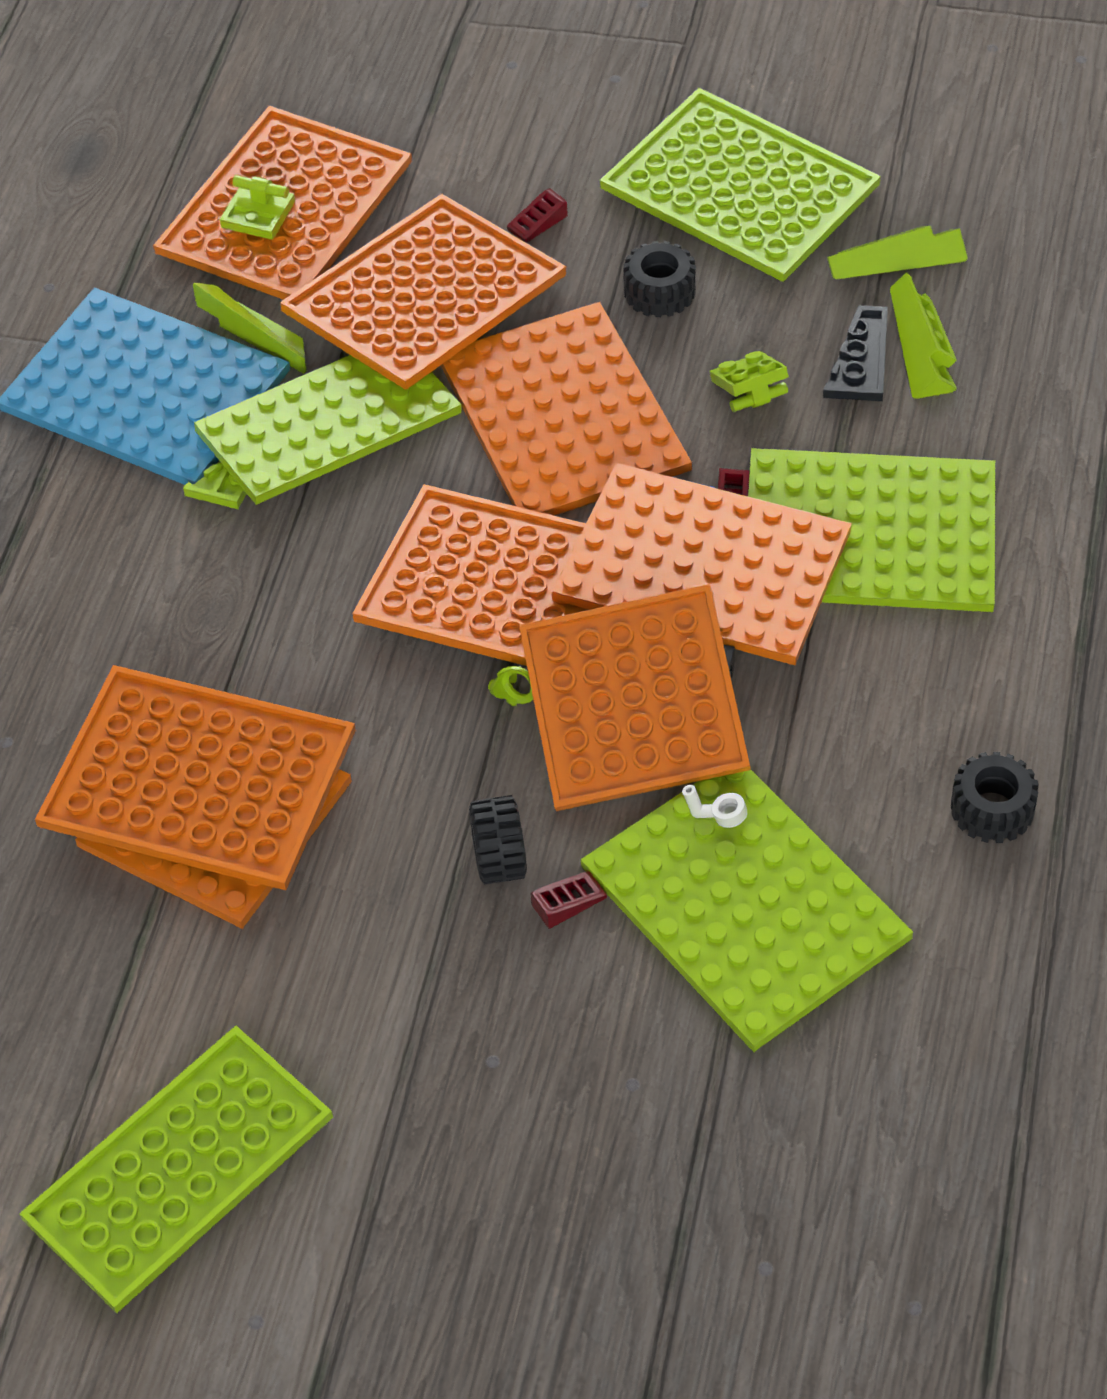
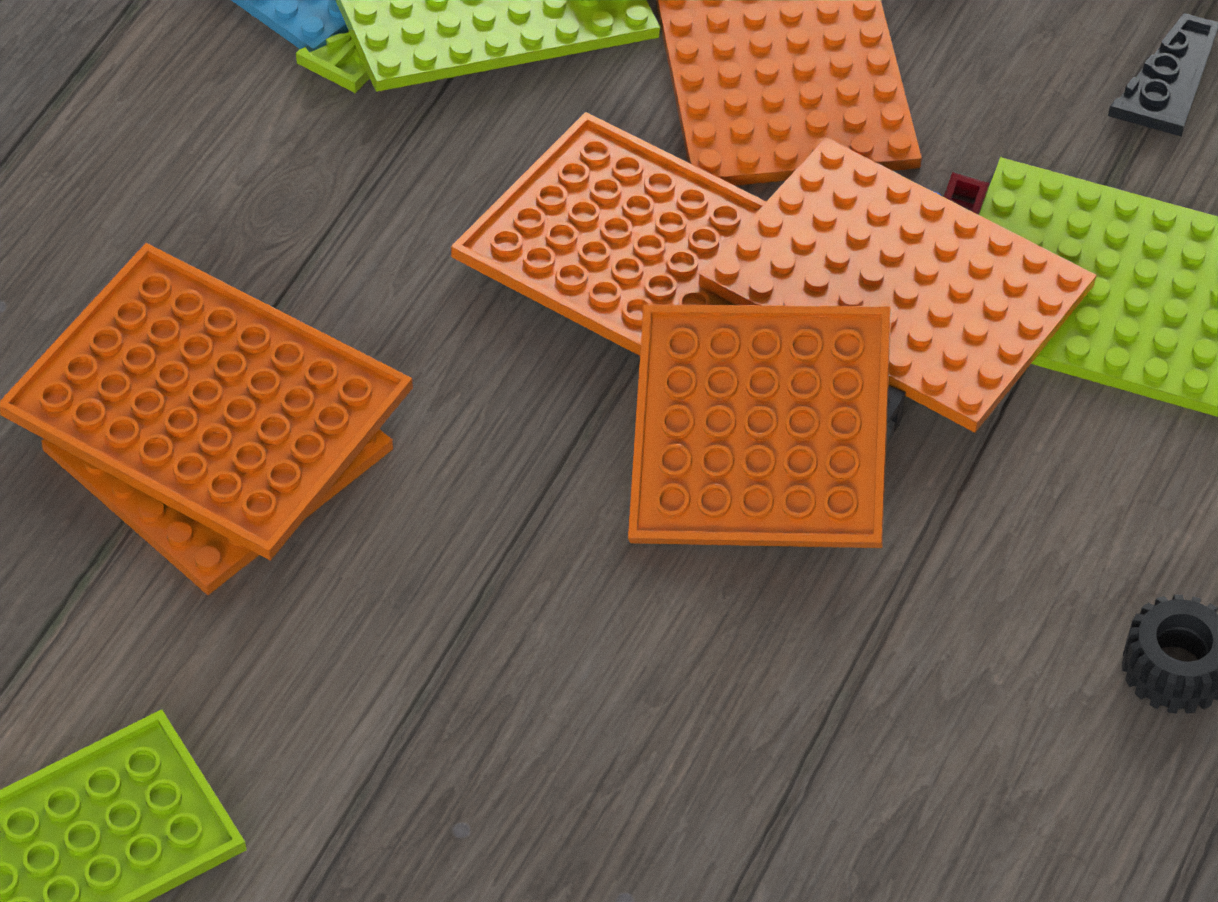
camera: 10 degrees right, 0 degrees up
(497, 839) = (542, 559): black tyre -> none
(502, 688) = (607, 377): lime piece -> none
(555, 915) = (602, 667): dark red slope -> none
(727, 809) = (838, 590): white plate -> none
(750, 910) = (832, 712): lime plate -> none
(751, 377) = (1024, 71): lime plate -> none

